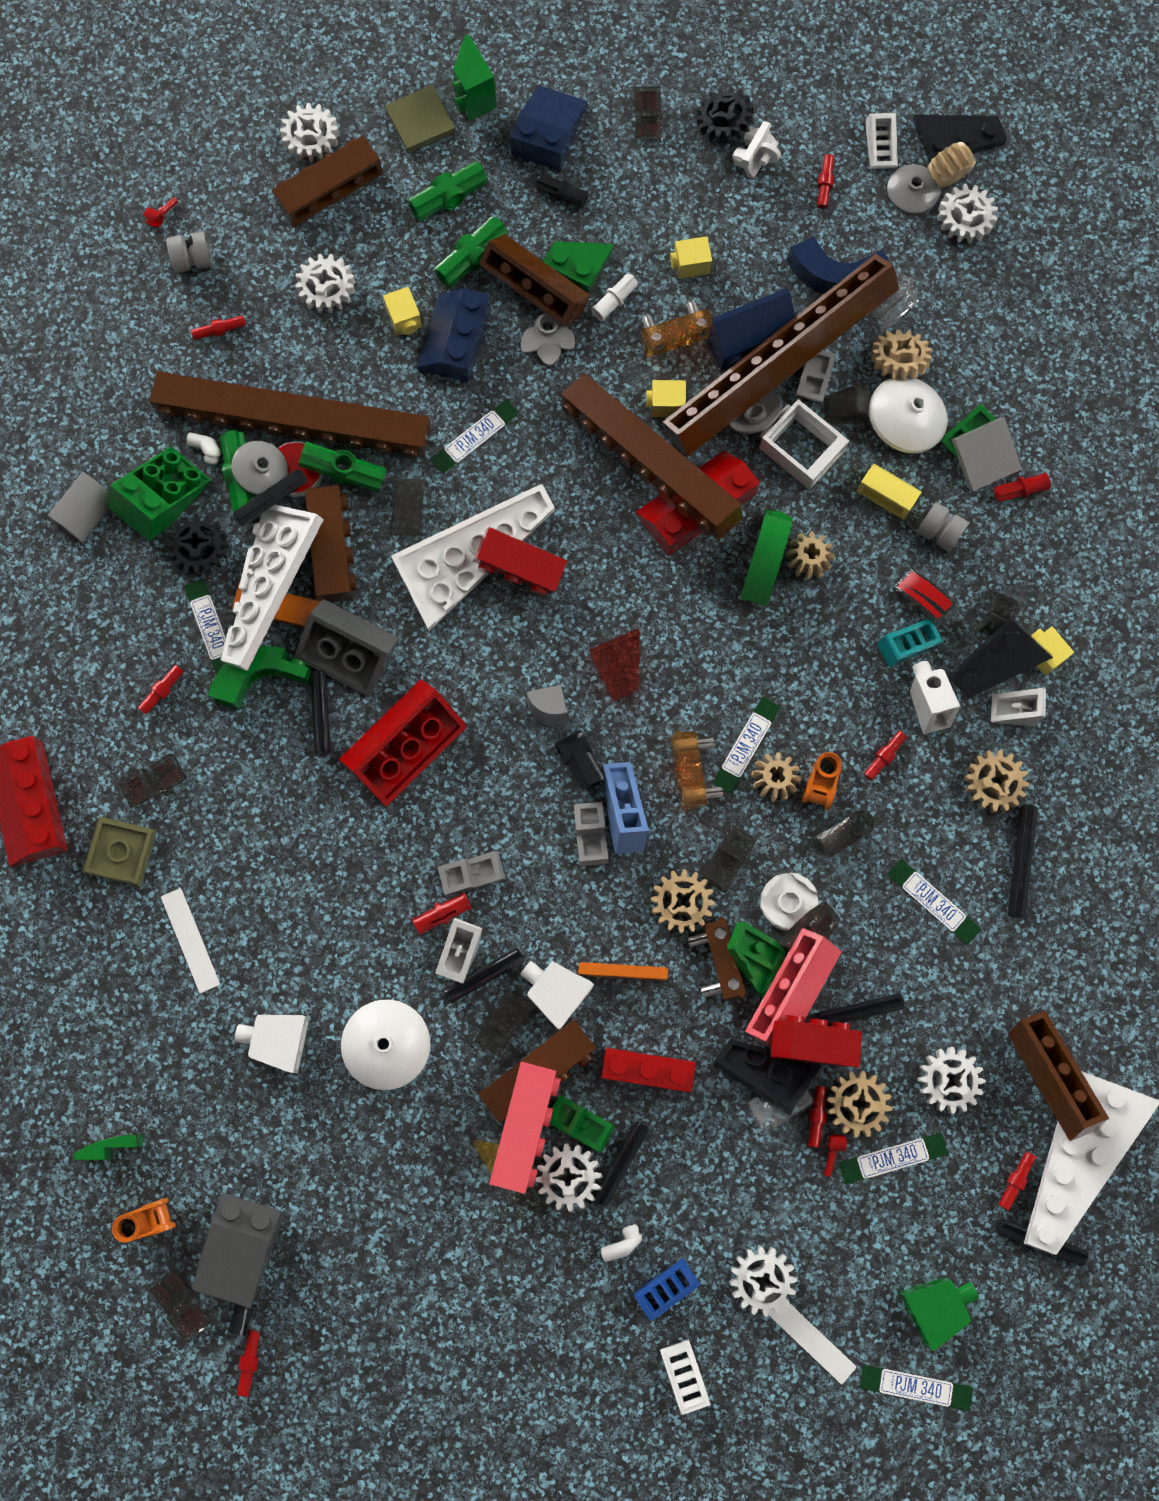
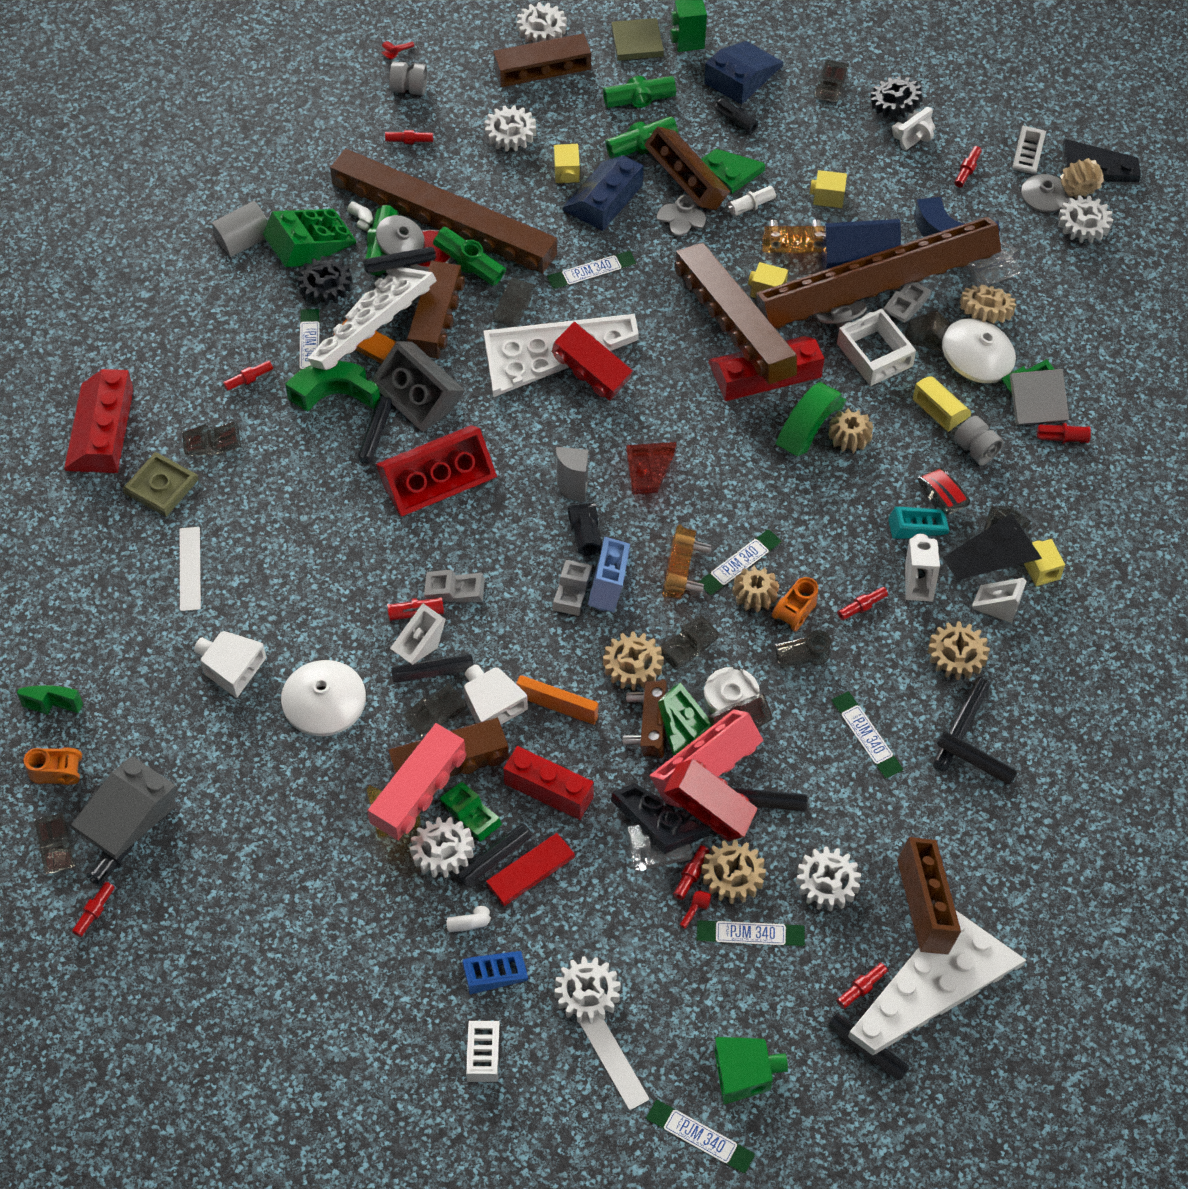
camera: 20 degrees right, 20 degrees down
(661, 1166) = (530, 869): none -> red tile
(1051, 898) = (977, 757): none -> black axle

